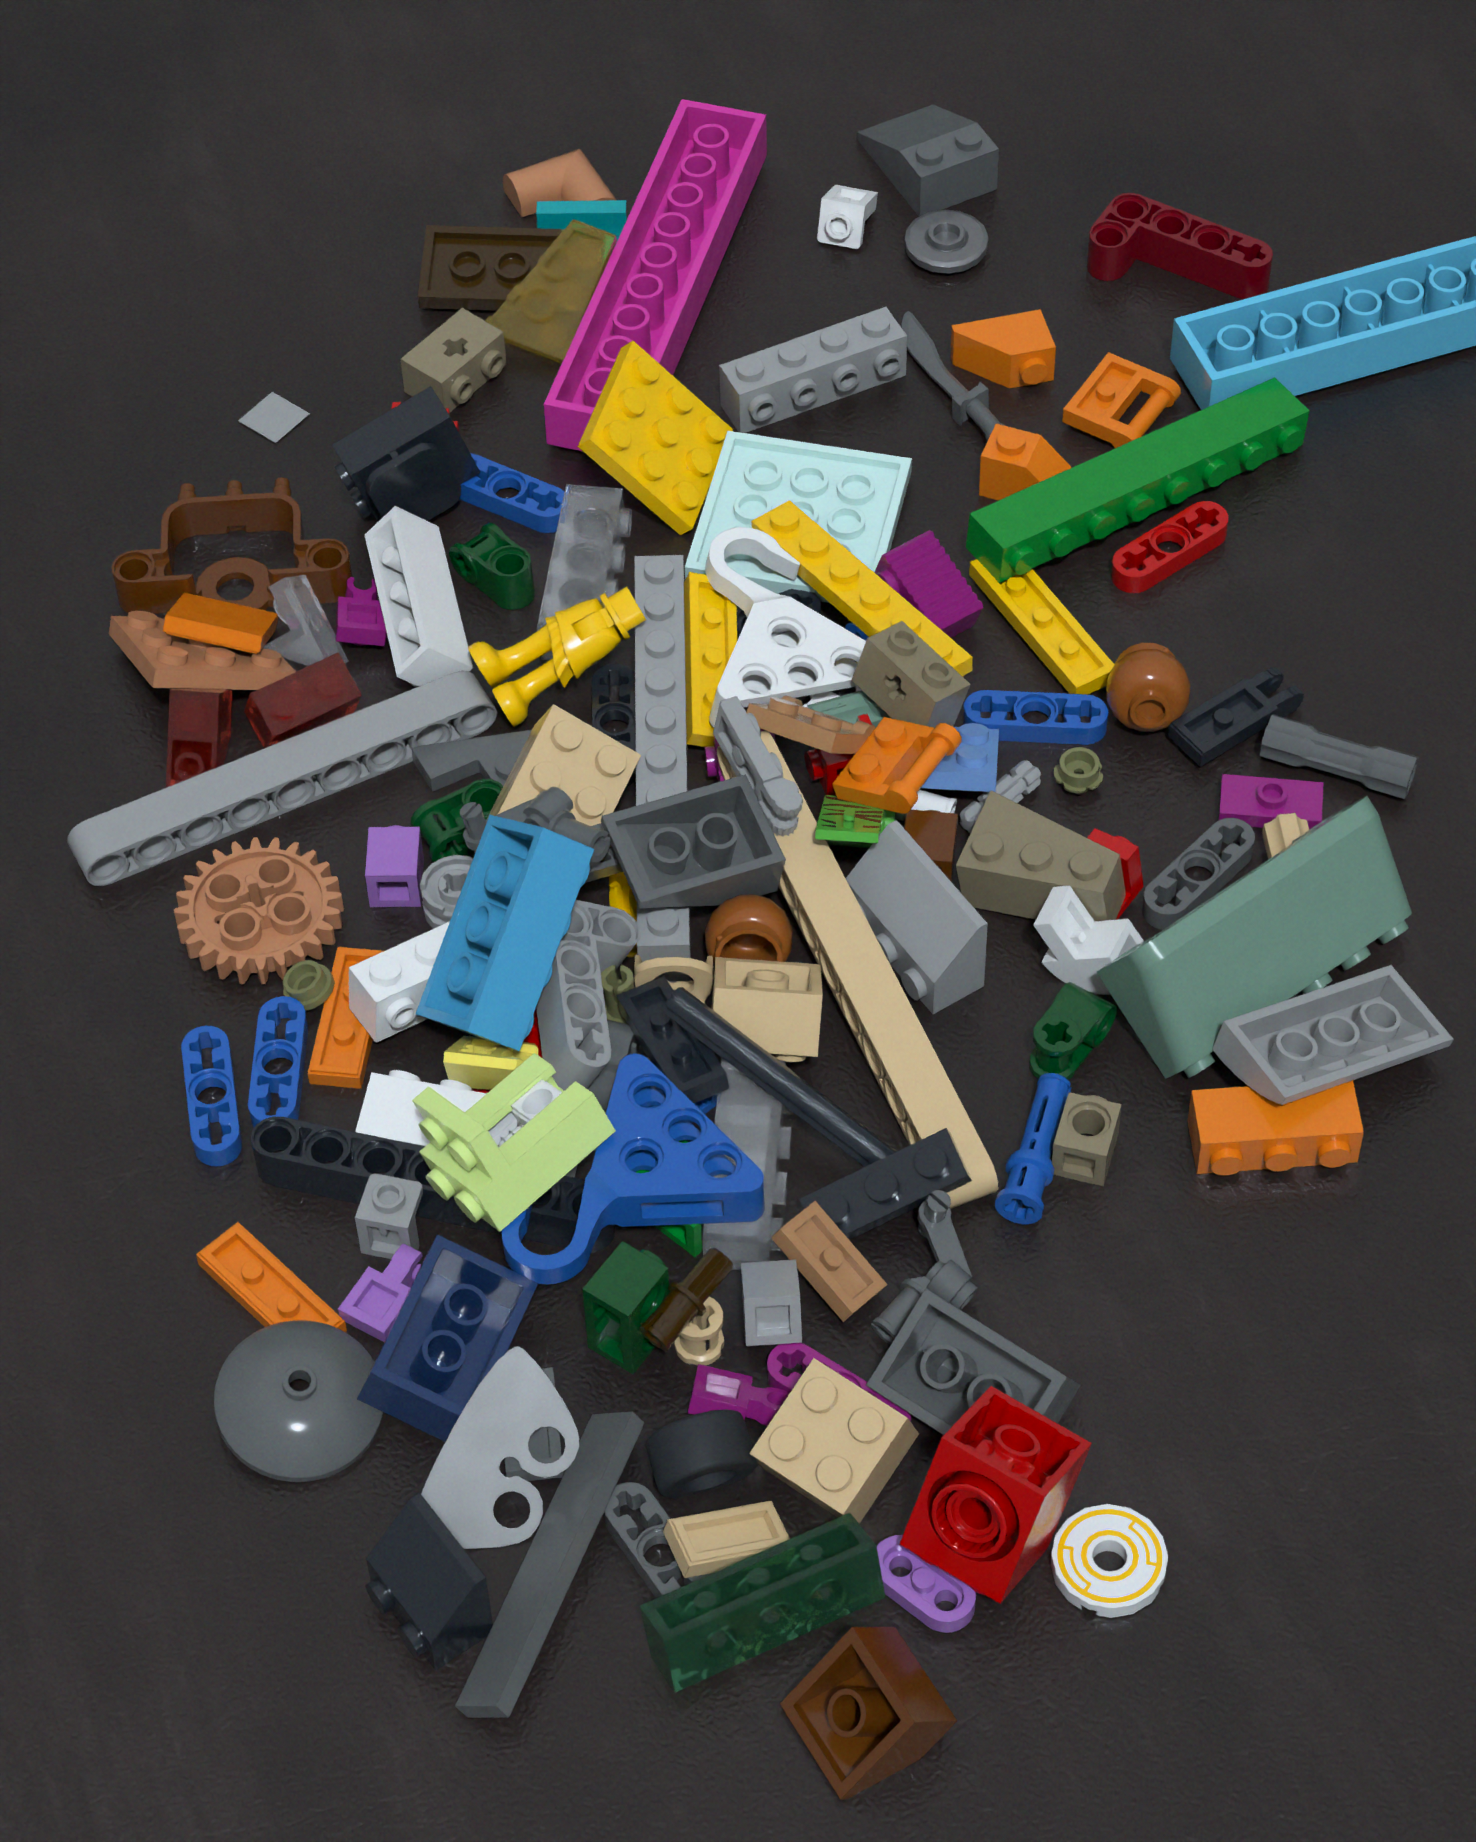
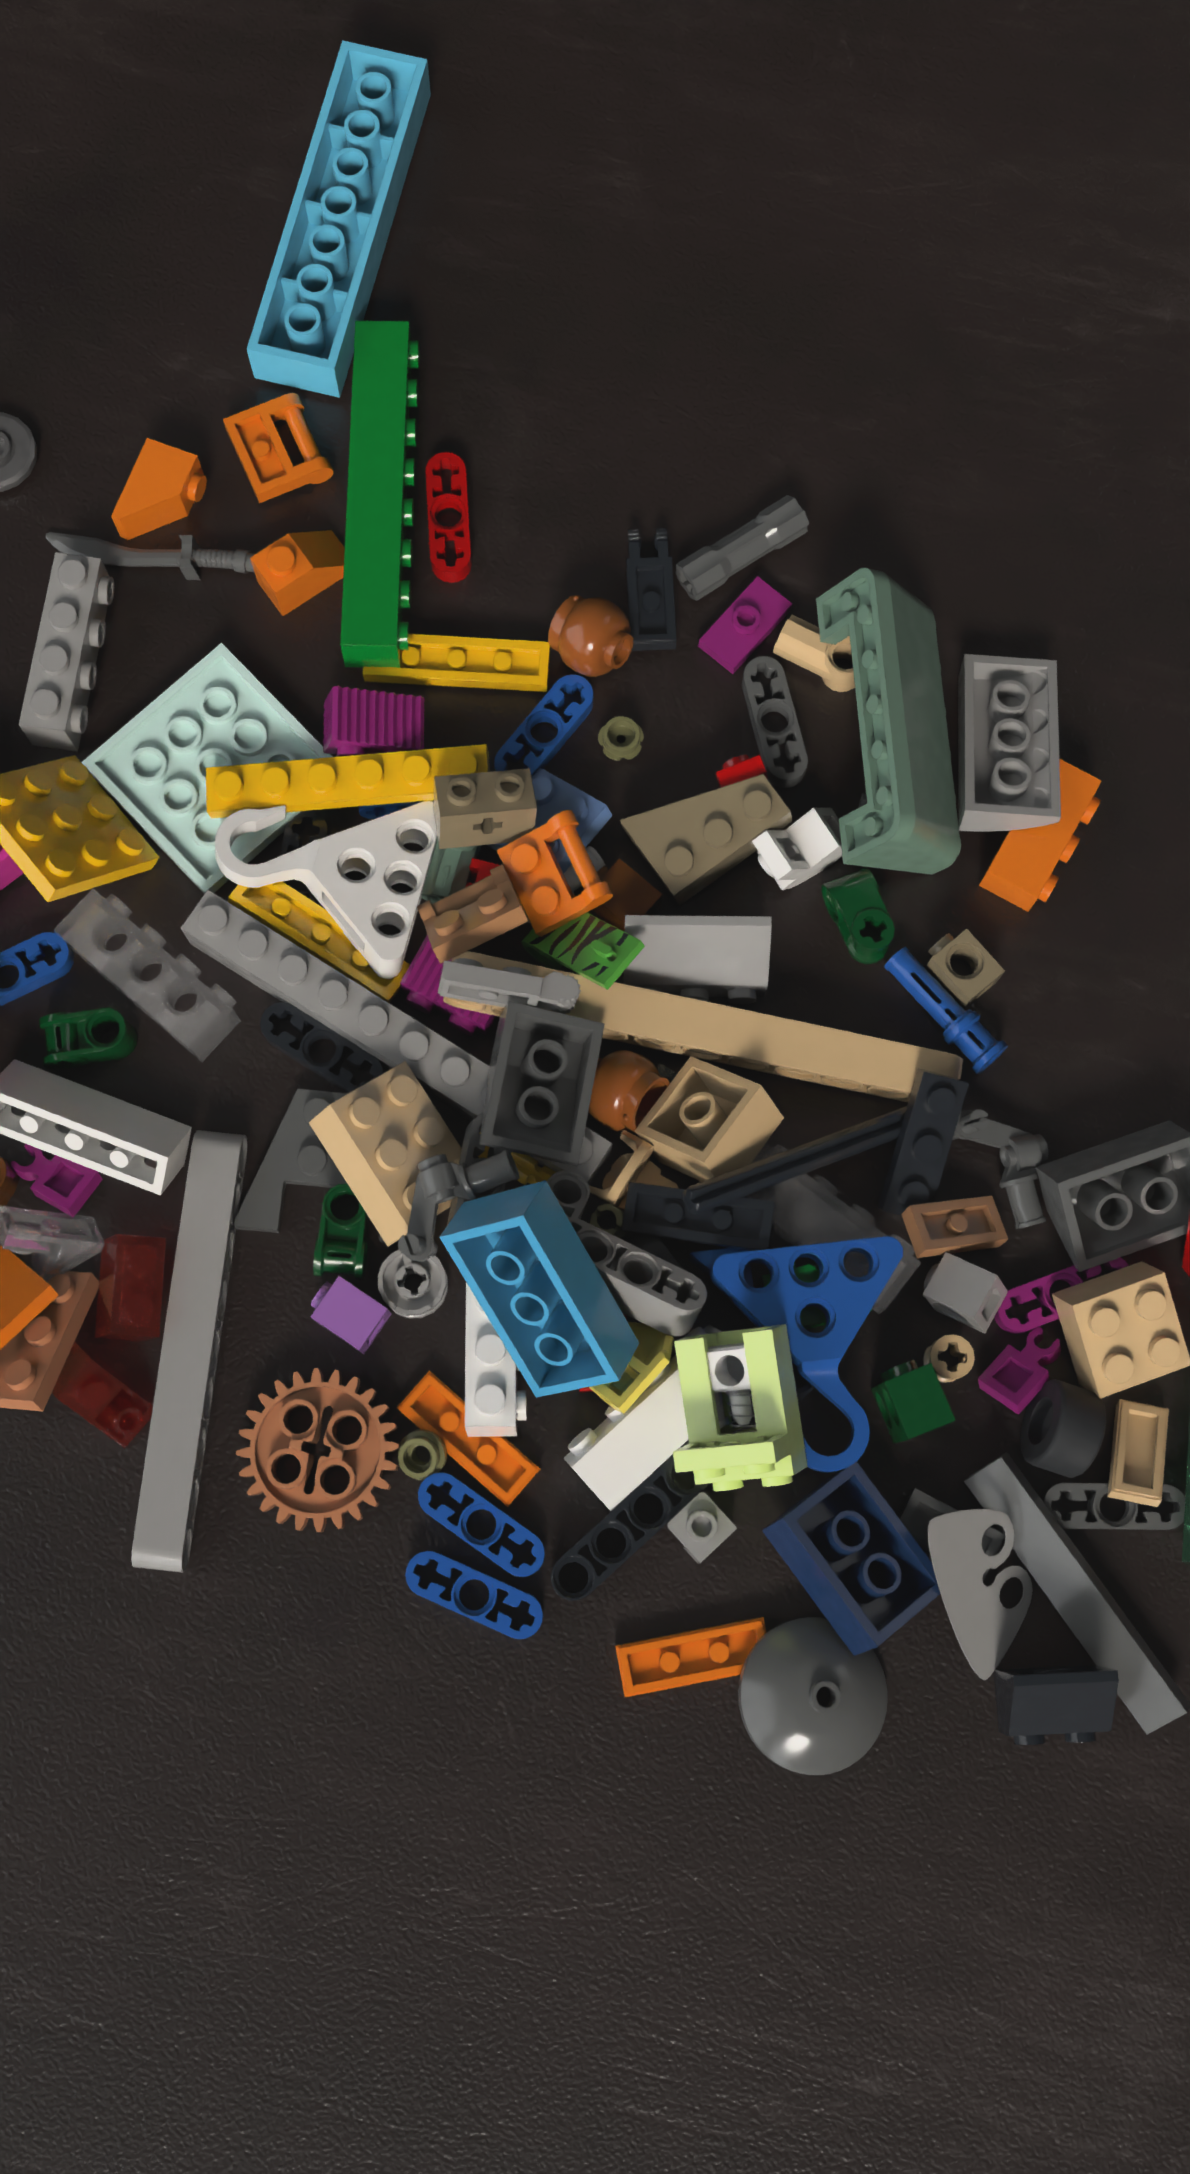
camera: 60 degrees left, 25 degrees up
(379, 1296) = (764, 1578): medium lavender plate -> none
(575, 637) = (235, 1029): yellow piece -> none
(686, 1299) = (945, 1357): dark brown axle -> none
(1022, 780) = (598, 785): light grey axle -> none
(1178, 243) = (203, 262): dark red beam -> none

